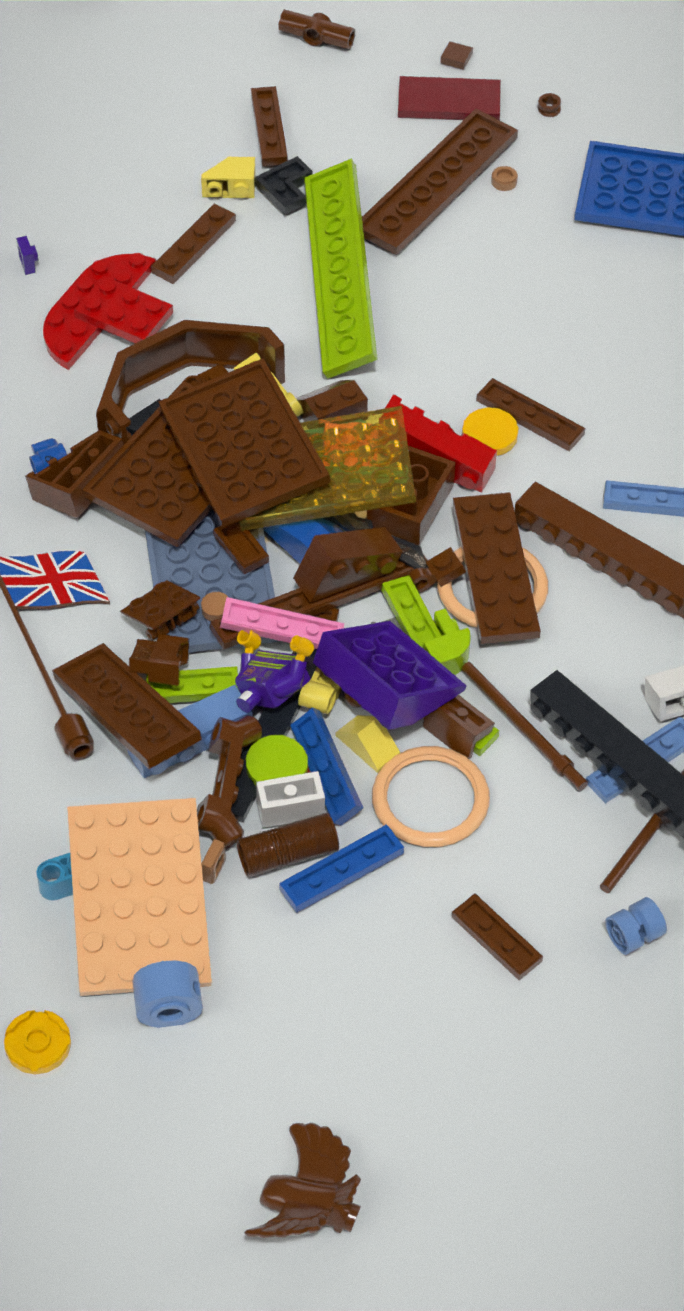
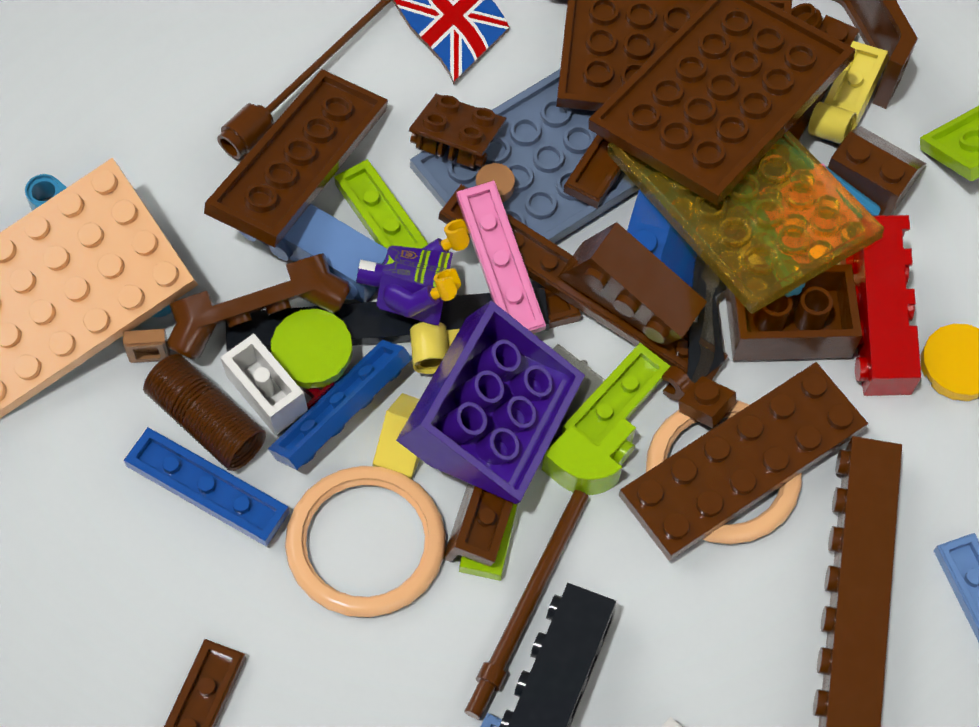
camera: 60 degrees right, 10 degrees up
(160, 658) = (384, 160): reddish brown piece -> none

